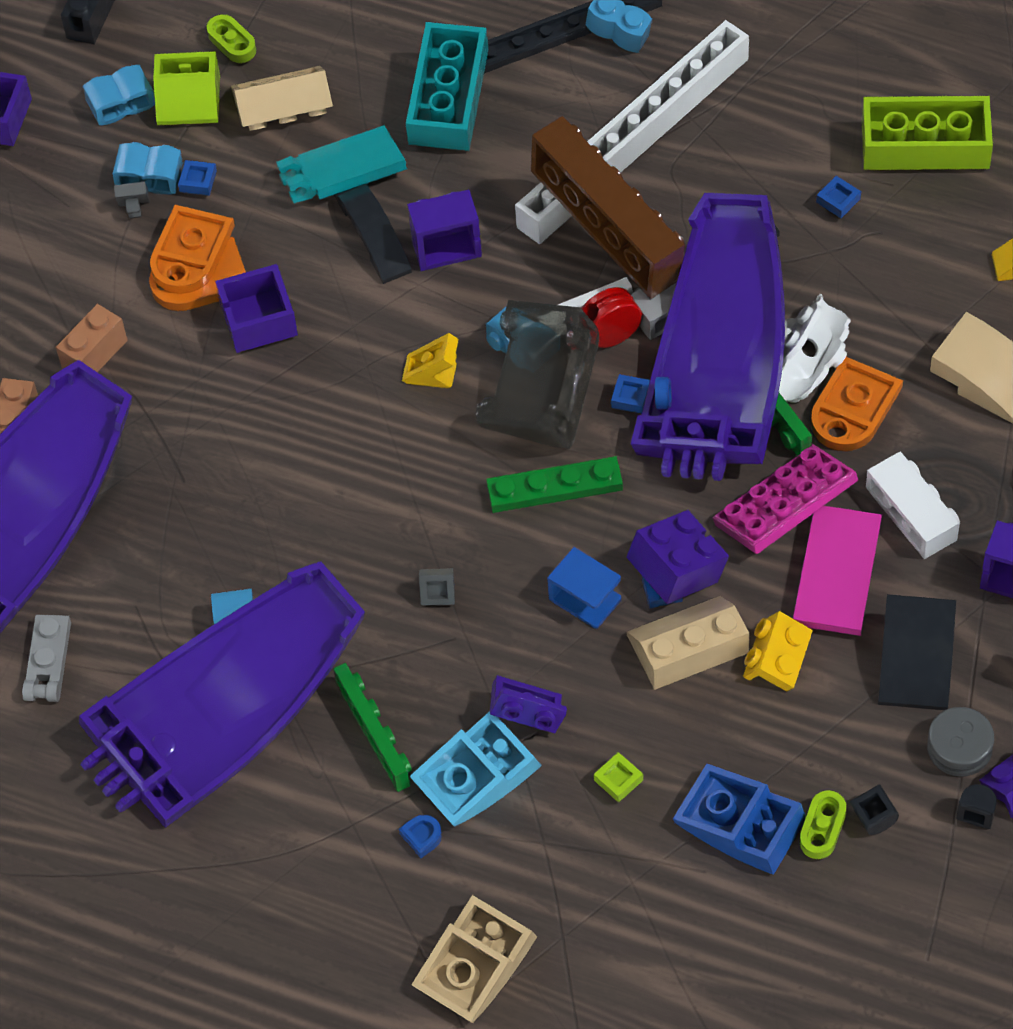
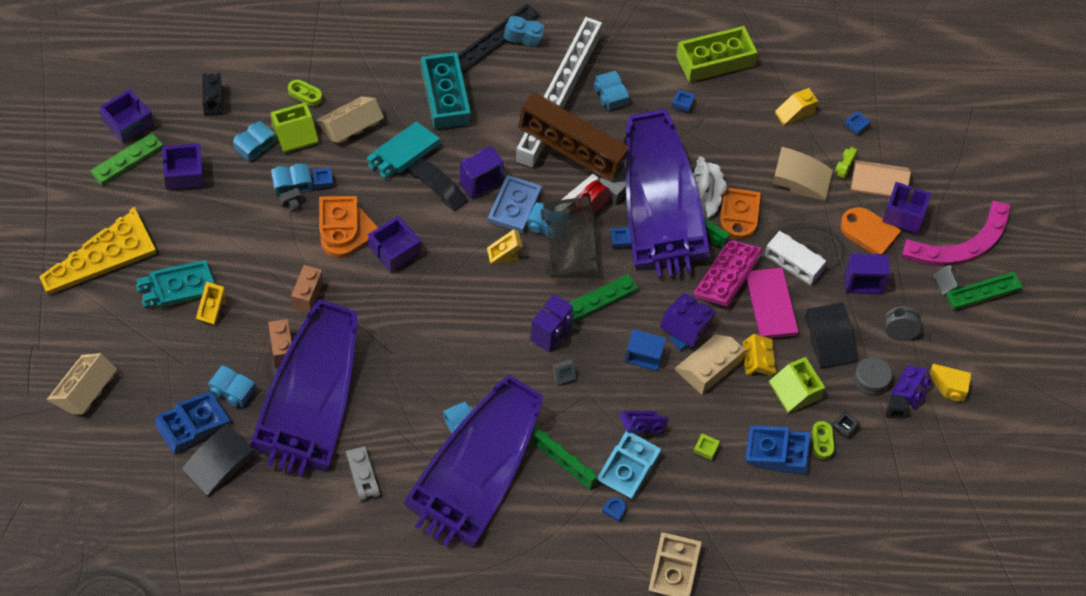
camera: 30 degrees left, 0 degrees up
(444, 515) = (550, 327): none -> dark purple piece
(480, 293) = (514, 203): none -> medium blue plate
(663, 393) = (641, 232): blue tile -> none
(723, 151) = (611, 90): none -> dark azure brick
(817, 719) = (797, 385): none -> lime slope

